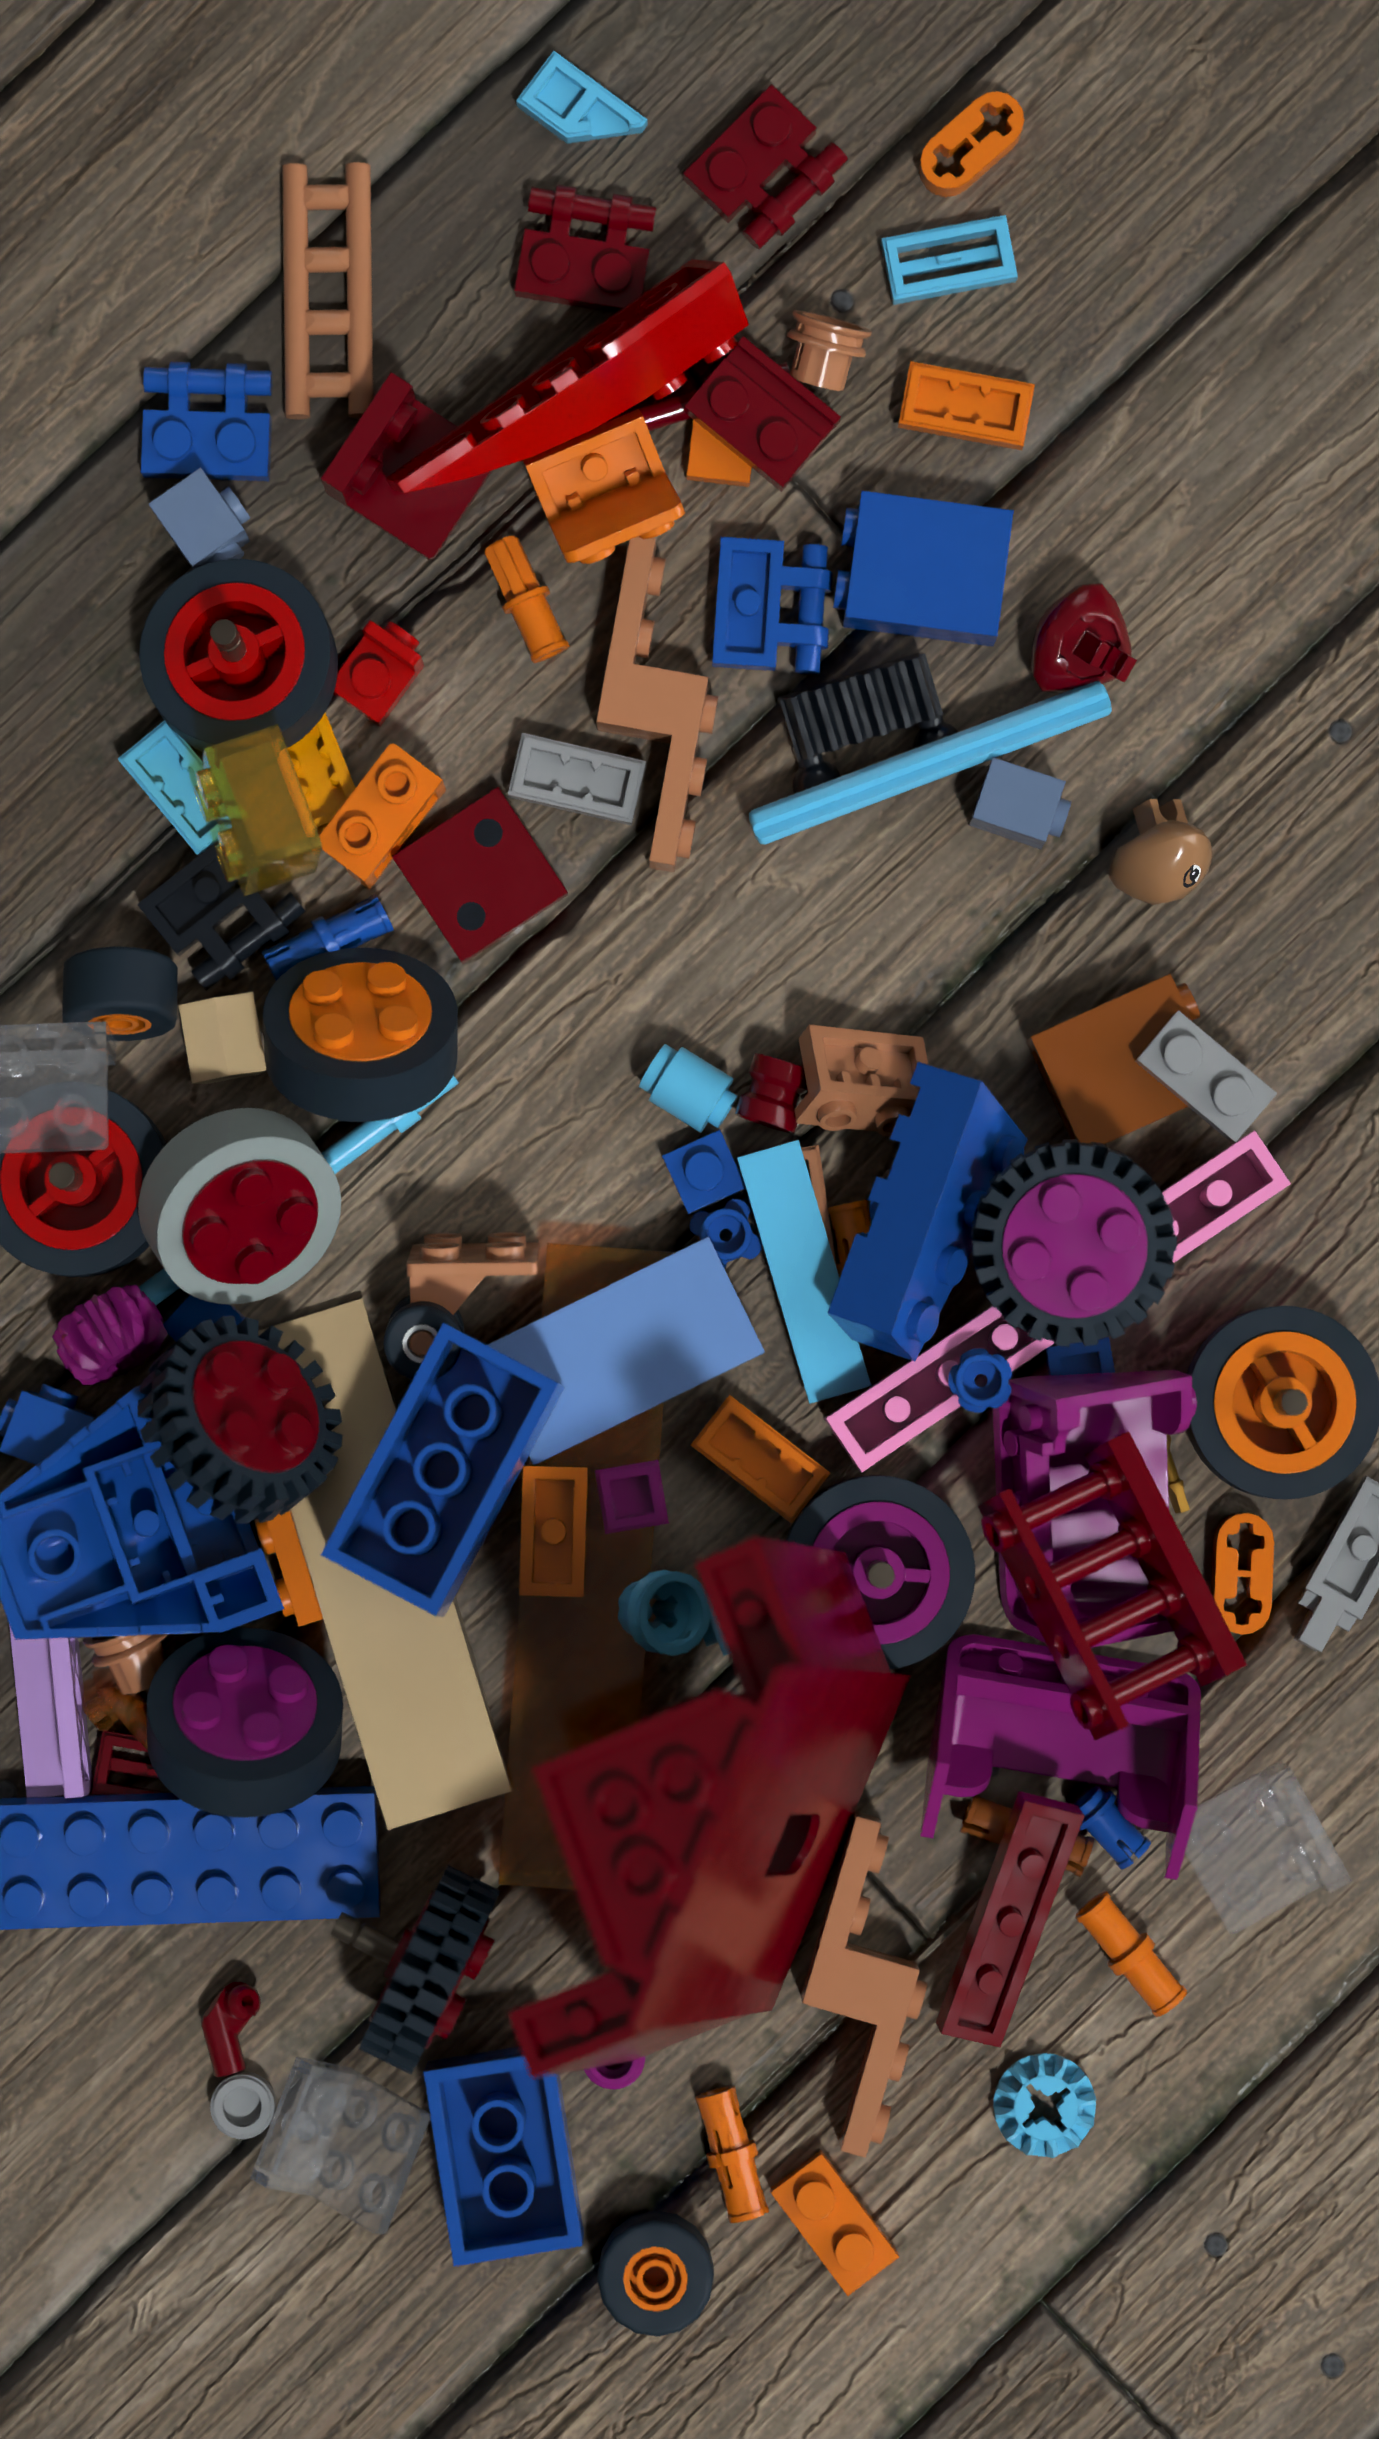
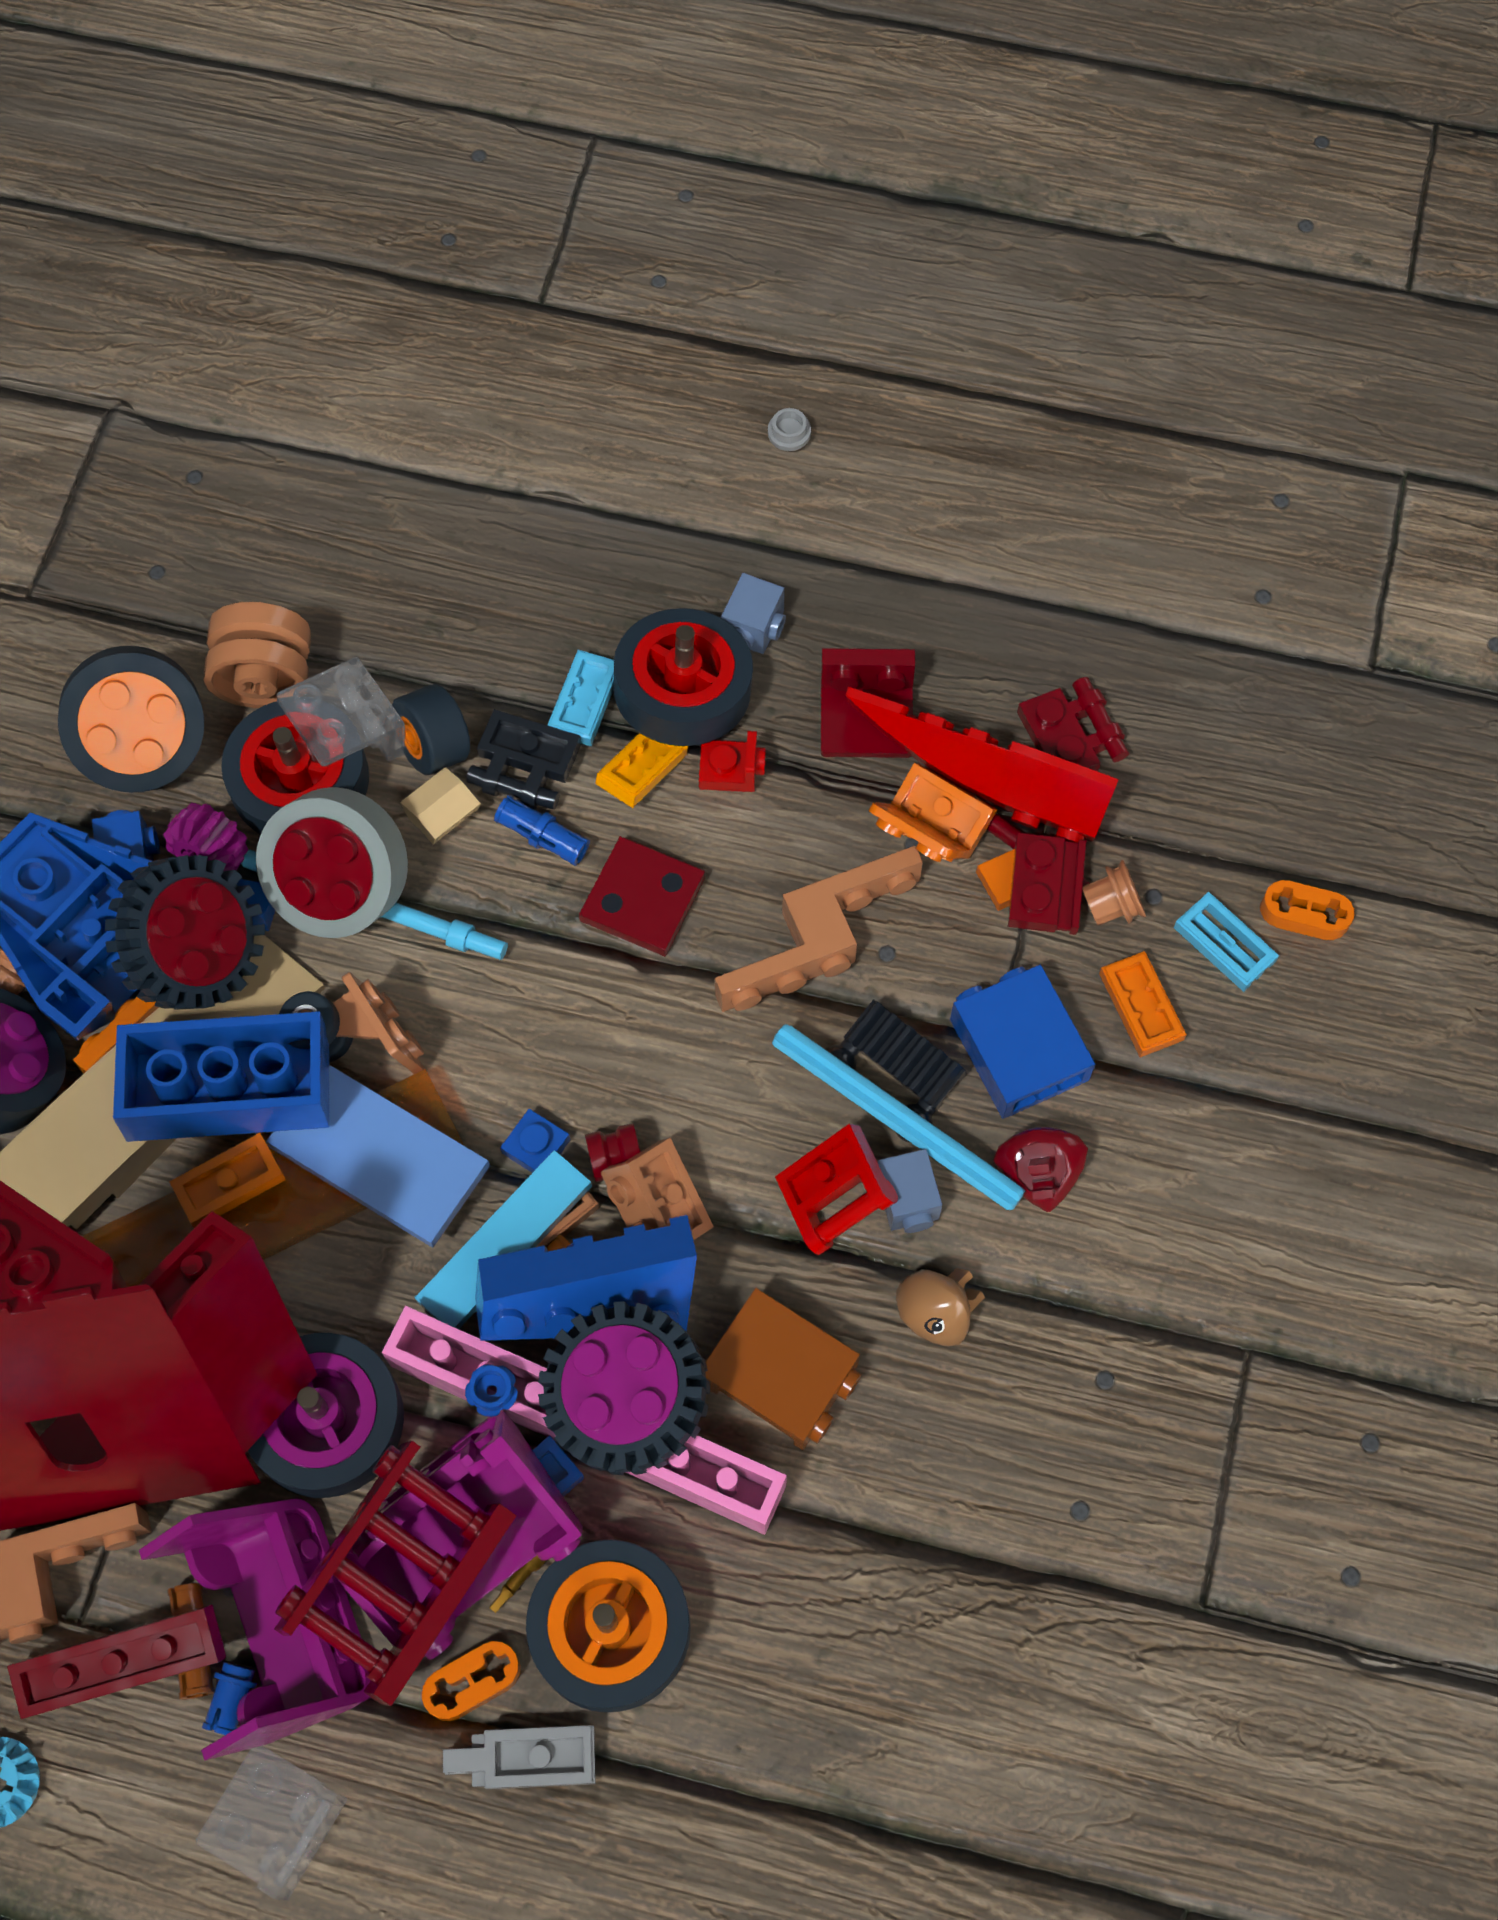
camera: 60 degrees right, 20 degrees down
(221, 443) = (807, 599): blue plate -> none
(259, 811) = (590, 726): clear yellow piece -> none
(299, 262) = (952, 583): nougat bar -> none
(360, 1034) = (487, 869): black wheel -> none
(381, 814) = (639, 810): orange bracket -> none
(525, 598) = (834, 820): orange axle -> none
(576, 105) = (1156, 676): medium azure tile -> none
(576, 779) = (741, 914): light grey plate -> none
(631, 1496) = (282, 1219): magenta tile -> none
(688, 1088) = (583, 1096): medium azure brick -> none
(735, 1219) = (501, 1168): blue plate -> none
(749, 605) = (924, 949): blue plate -> none
(750, 156) = (1200, 789): dark red plate -> none
(760, 1459) = (360, 1291): orange plate -> none
(950, 881) = (828, 1174): none -> red plate
(1131, 1954) = (140, 1775): orange pin -> none
(1206, 1077) = (803, 1420): light grey plate -> none

